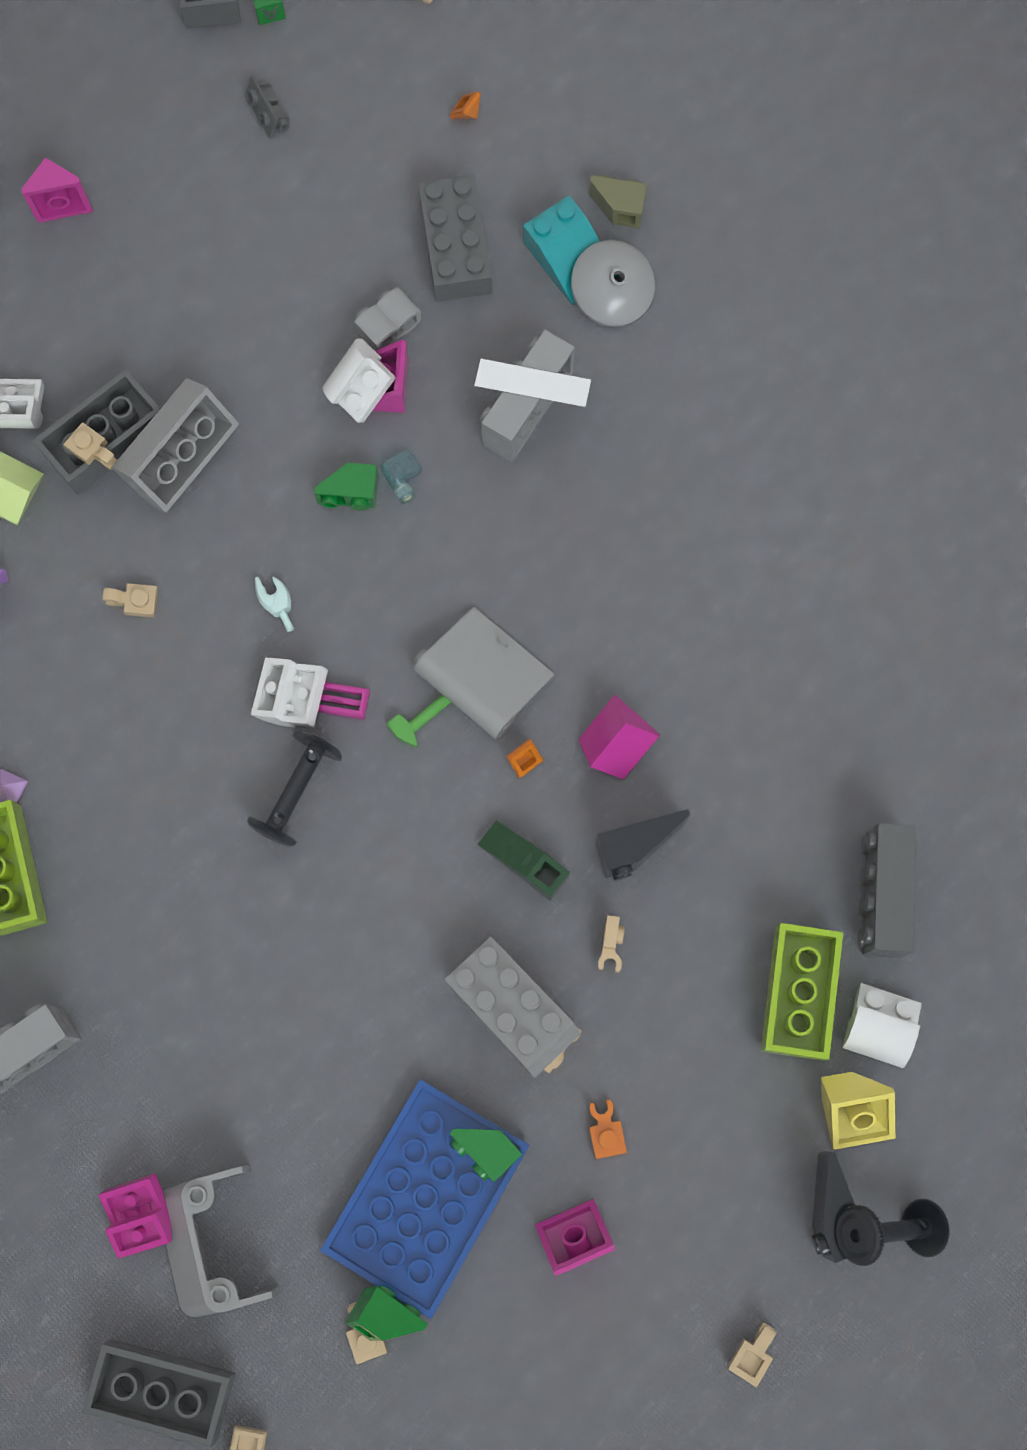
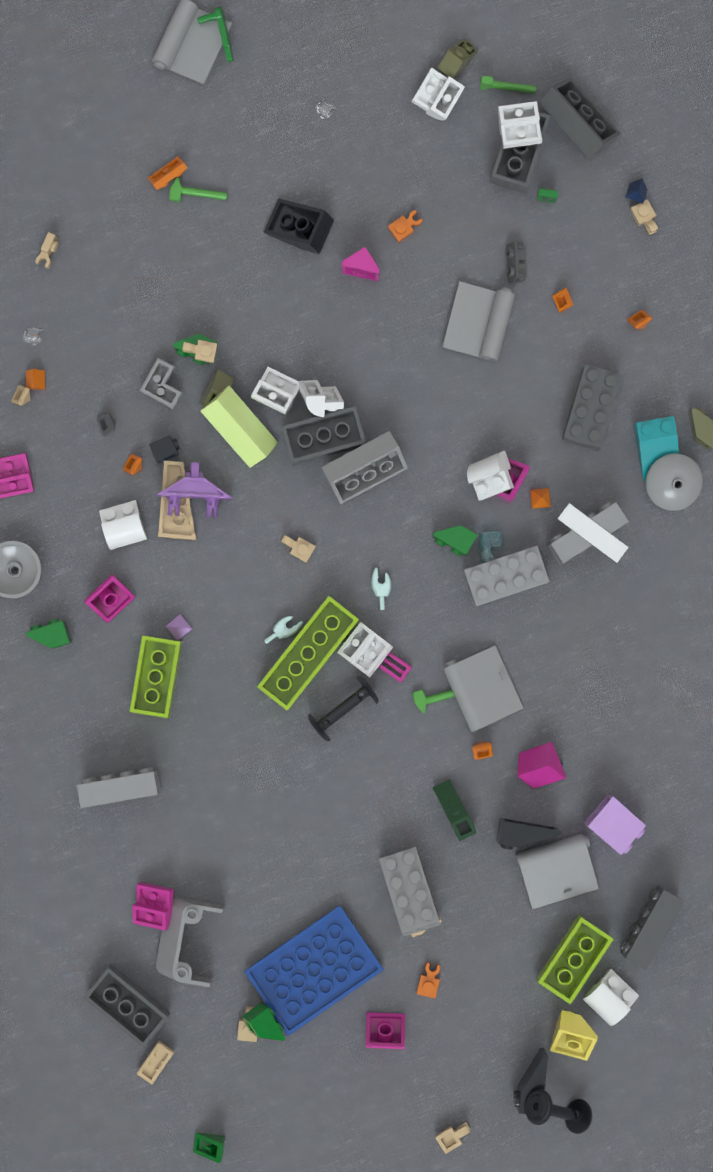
camera: 30 degrees right, 10 degrees up
(69, 385) = (320, 398): none -> white brick
(90, 445) = (313, 446): tan plate -> none
(96, 130) = (403, 227): none -> orange plate
(159, 724) = (282, 631): none -> light aqua hand
(208, 734) = (308, 653): none -> lime brick
(251, 200) = (478, 321): none -> light grey door
(351, 125) = (562, 300): none -> orange slope
(388, 319) = (526, 441): light grey brick -> none
(443, 386) = (540, 498): none -> orange slope
(443, 505) = (506, 576): none -> light grey brick
(488, 1148) = (360, 961): green slope -> none
(612, 935) = (483, 877): tan plate -> none
(714, 878) = (557, 870): none -> light grey door
(763, 771) = (615, 824): none -> lavender slope

